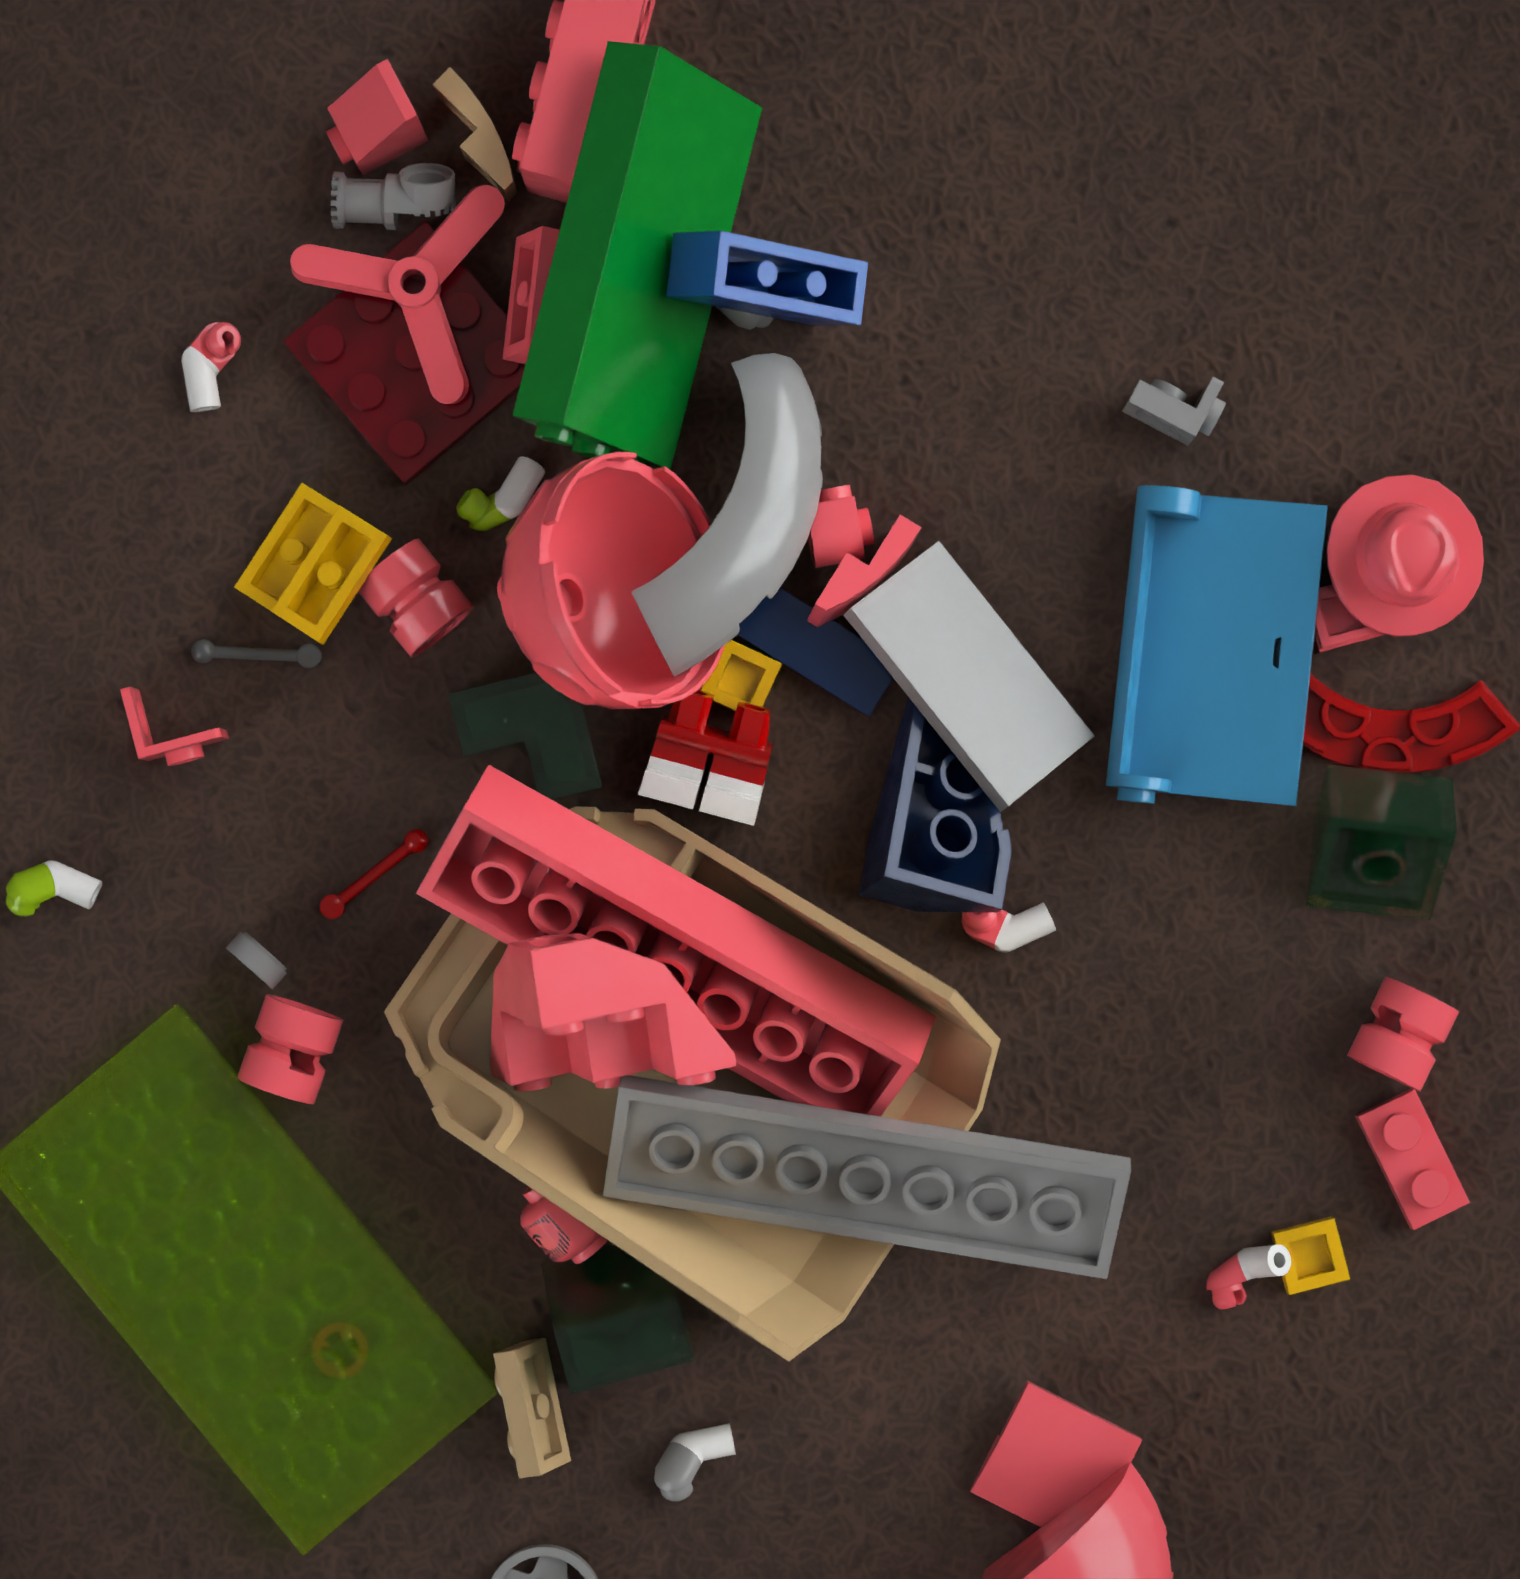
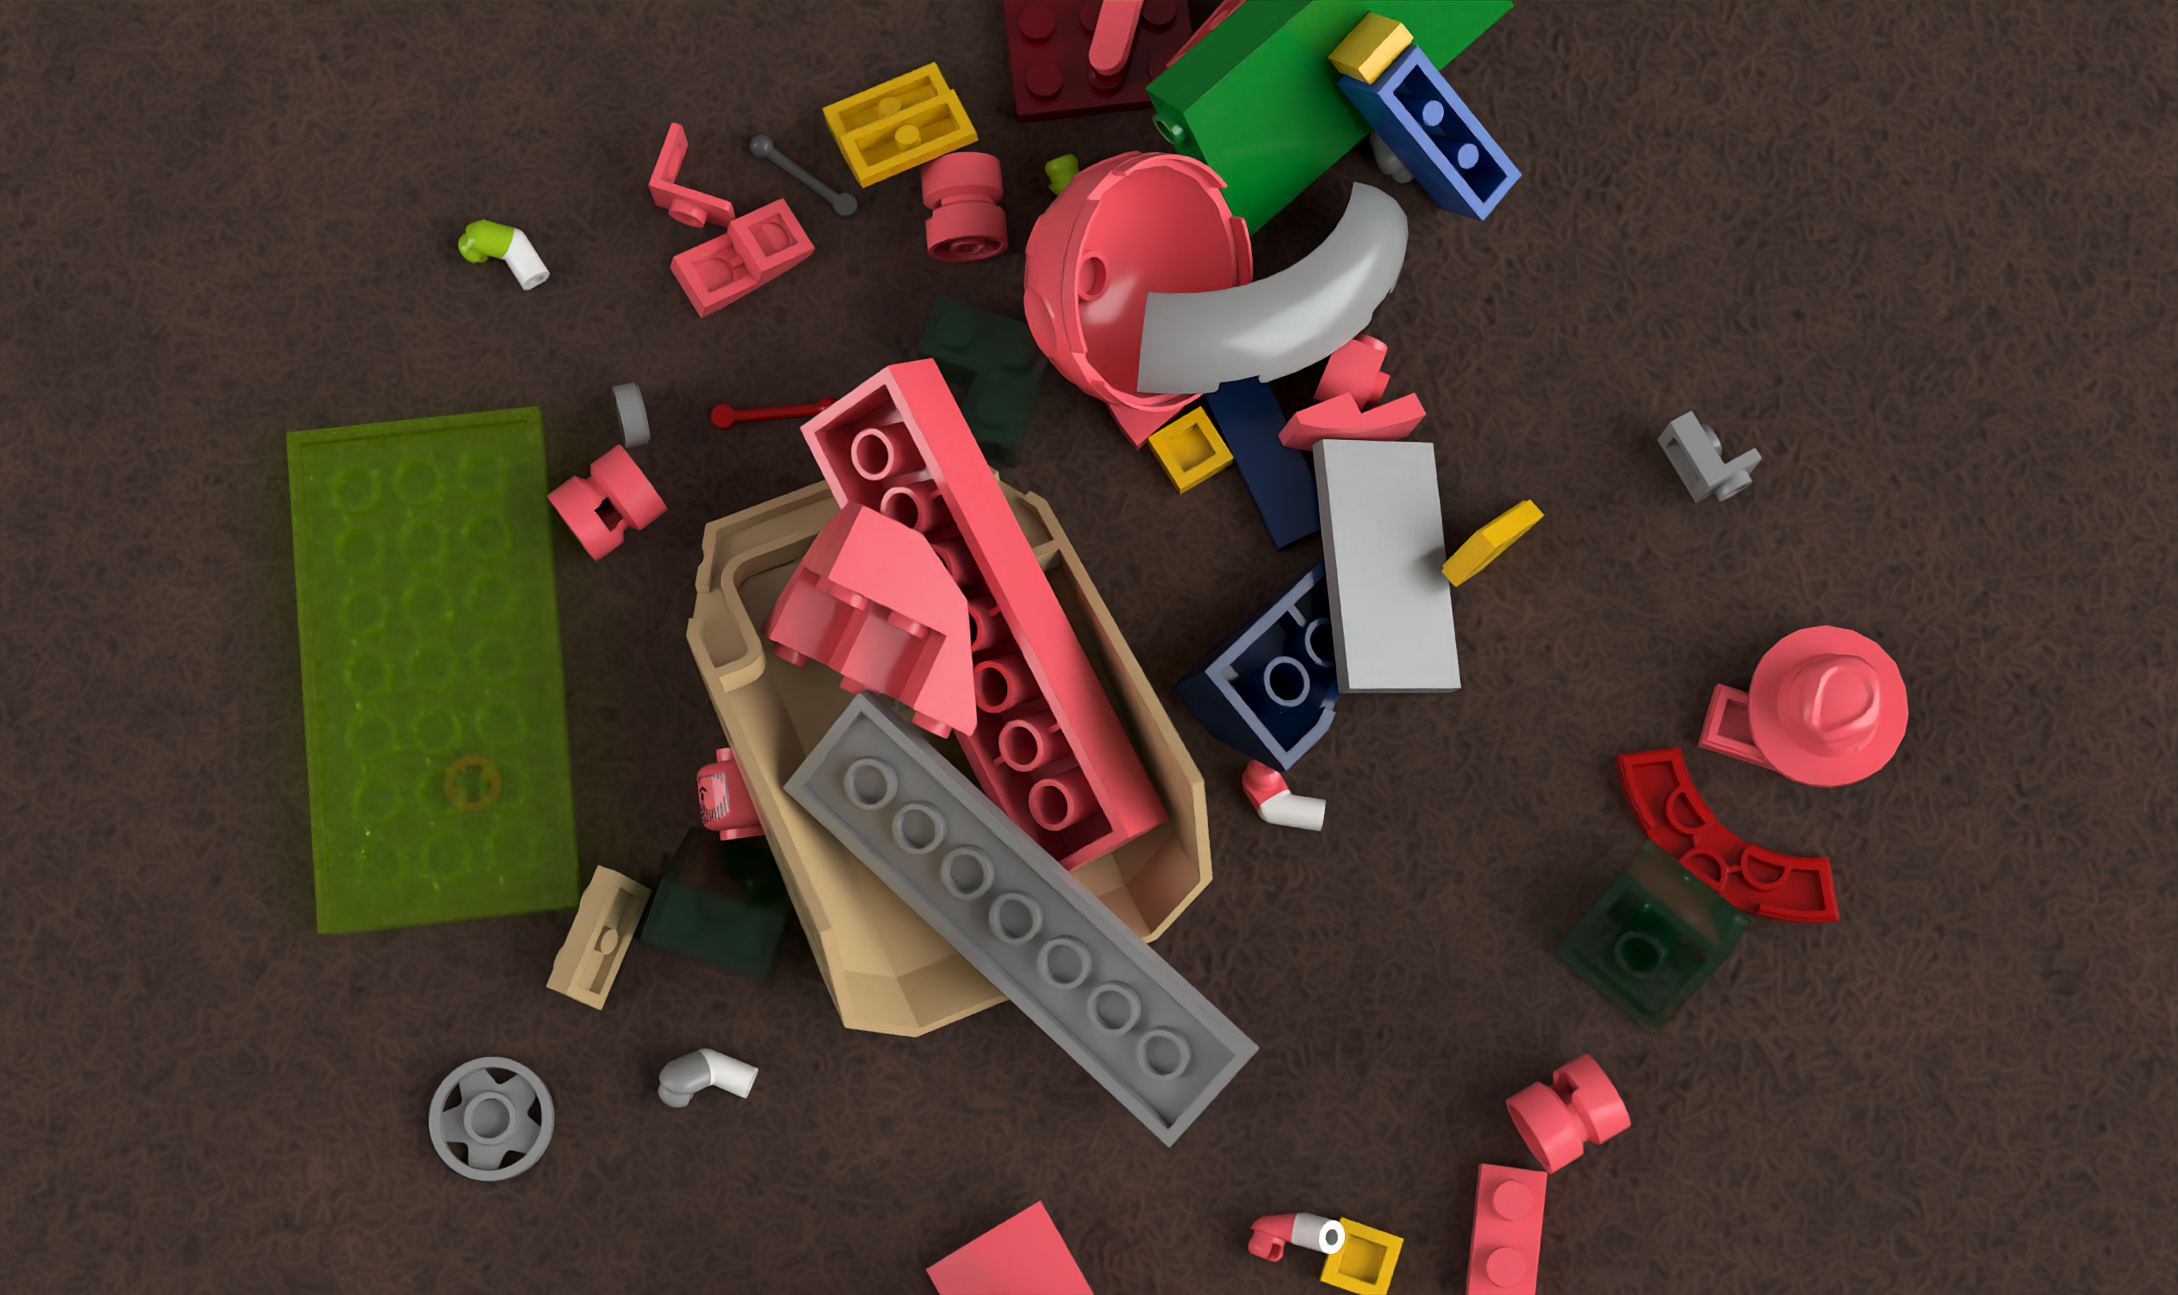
camera: 30 degrees right, 10 degrees down
(254, 760) = (743, 258): none -> coral slope
(679, 252) = (1370, 48): none -> yellow tile
(737, 765) = (1114, 499): red hips -> none
(1042, 595) = (1490, 542): none -> yellow tile
(1200, 628) = (1582, 689): dark azure door -> none

